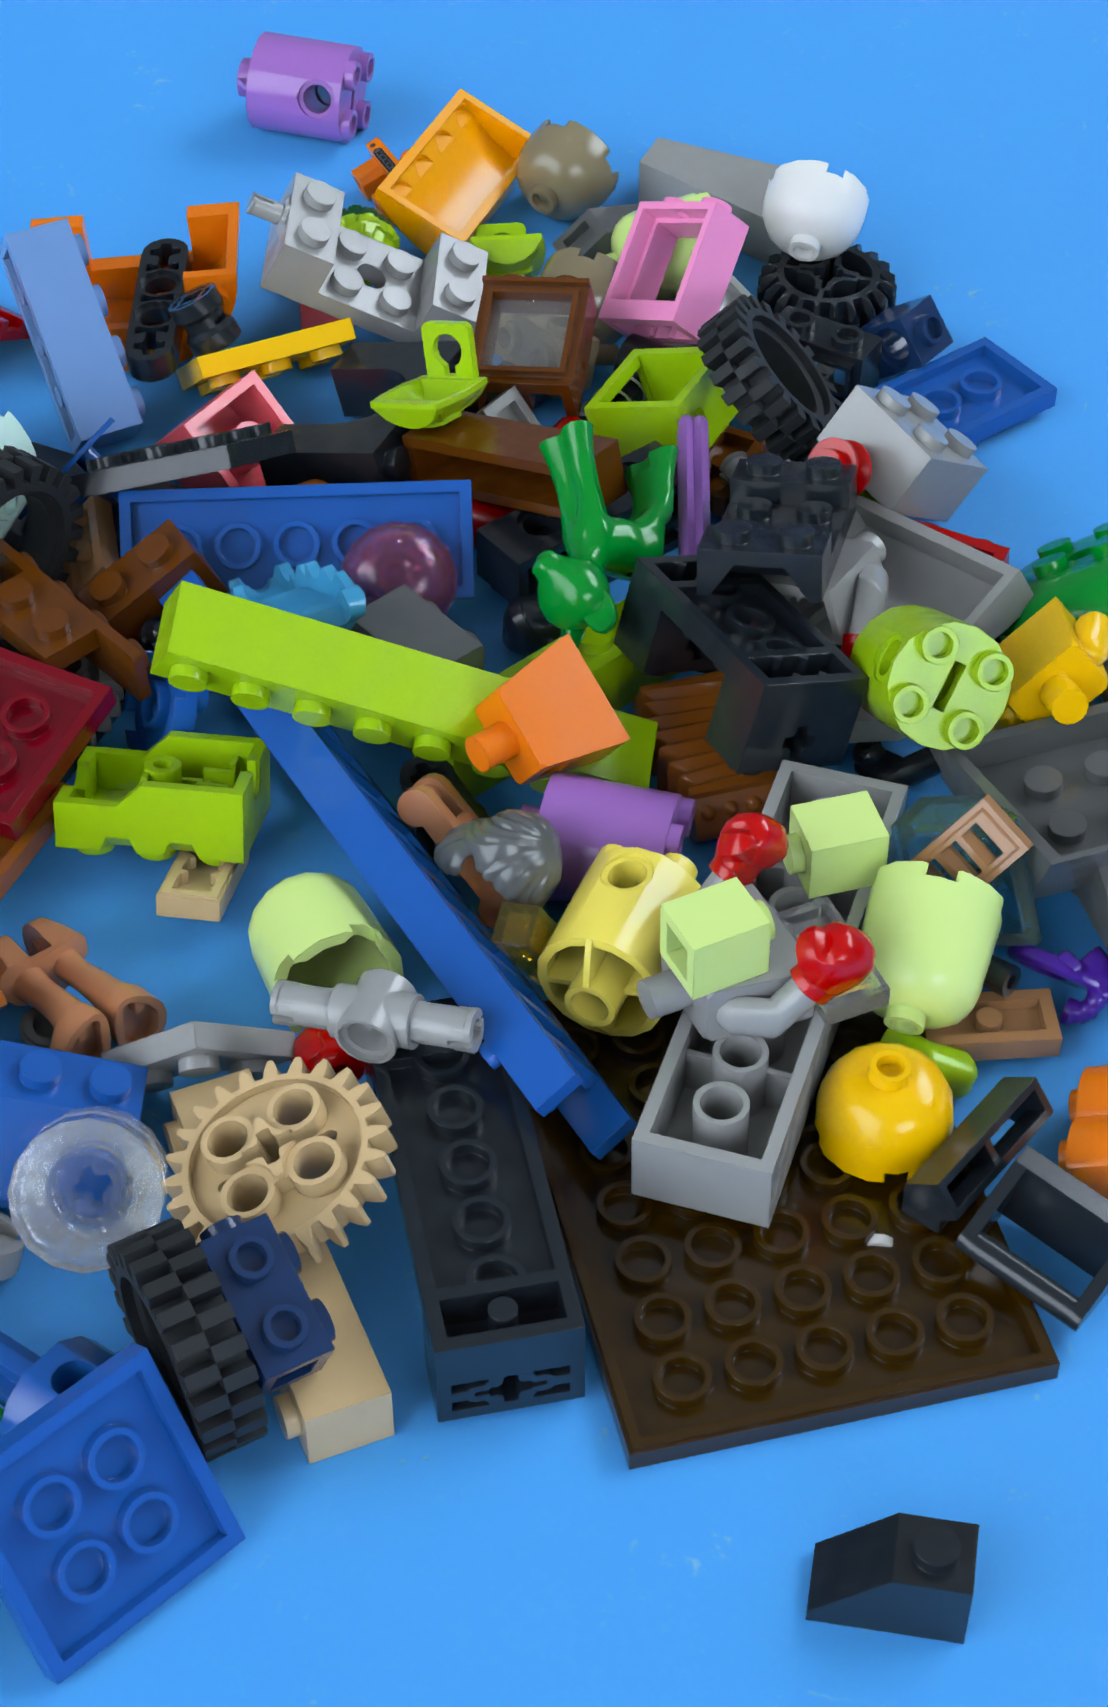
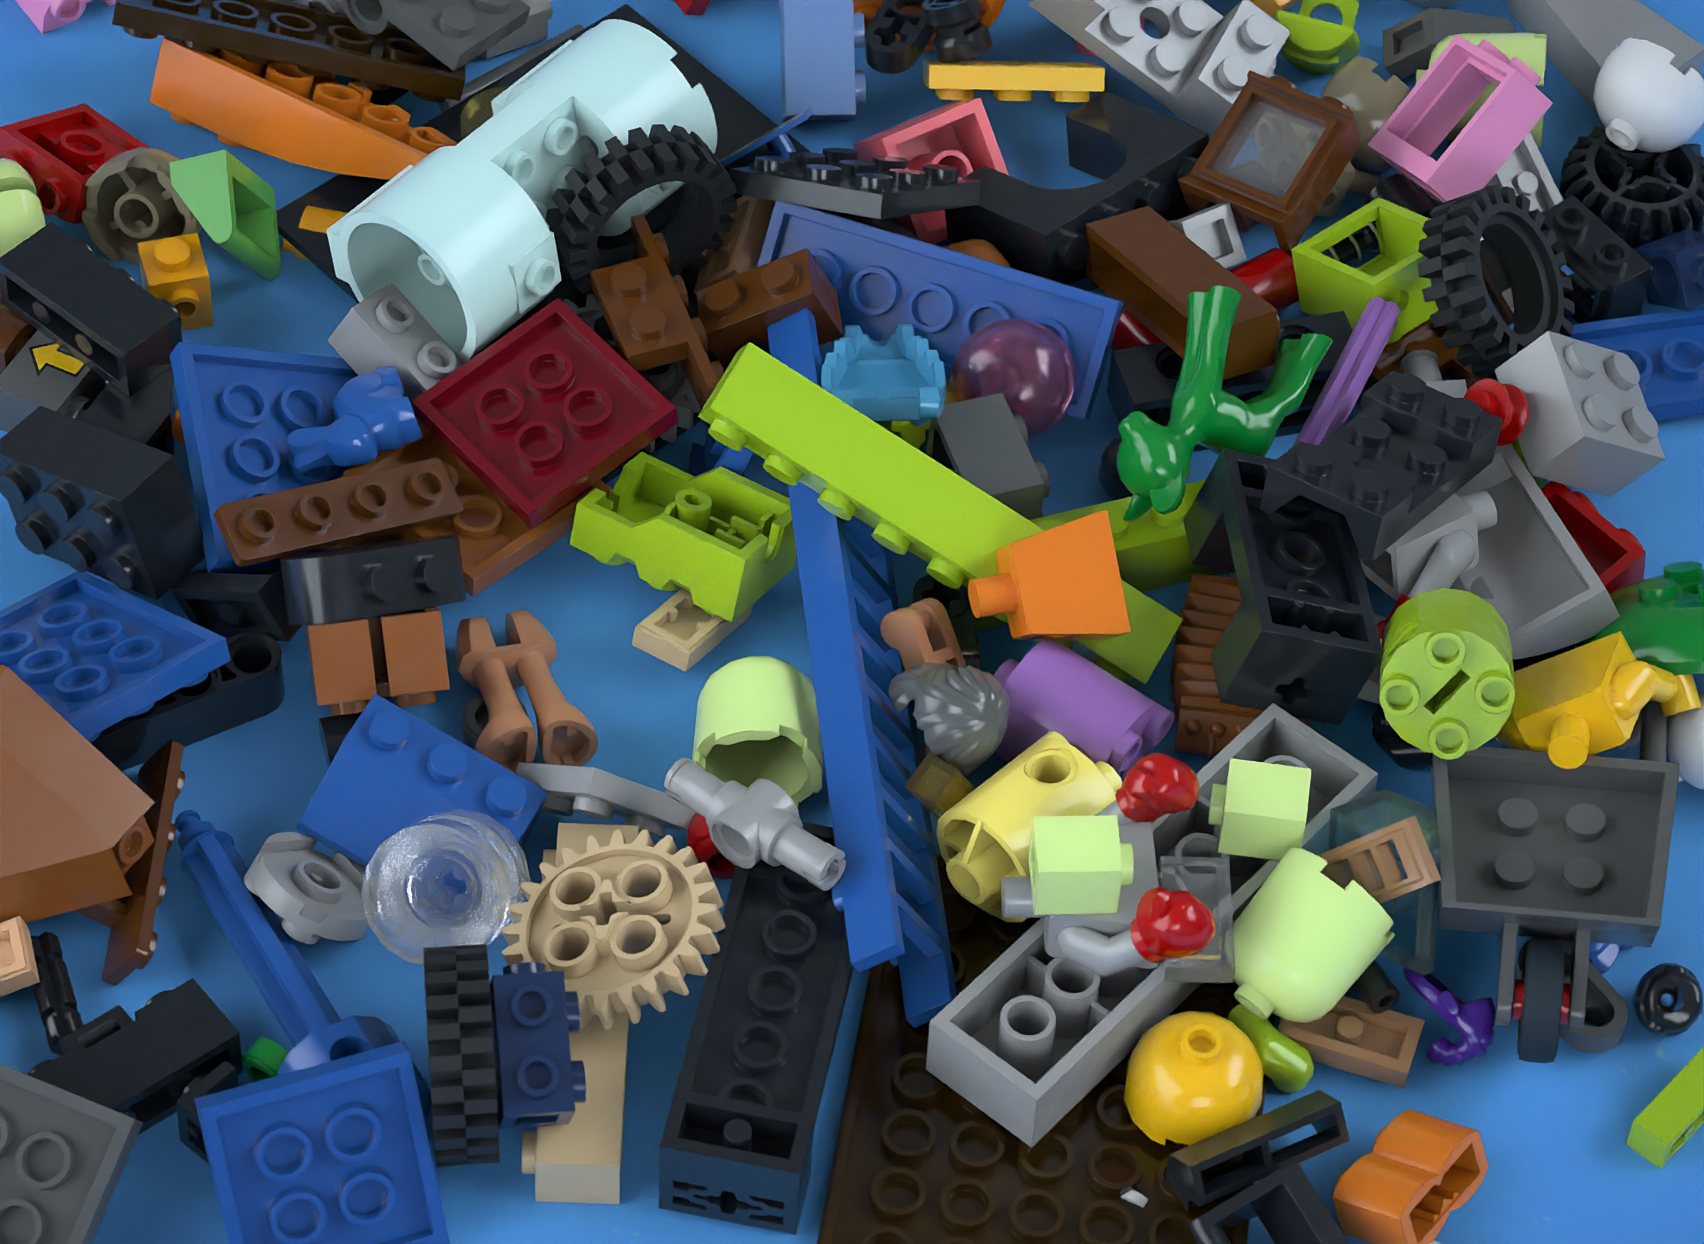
camera: 20 degrees right, 5 degrees up
(439, 395) = (1137, 192): lime piece -> none

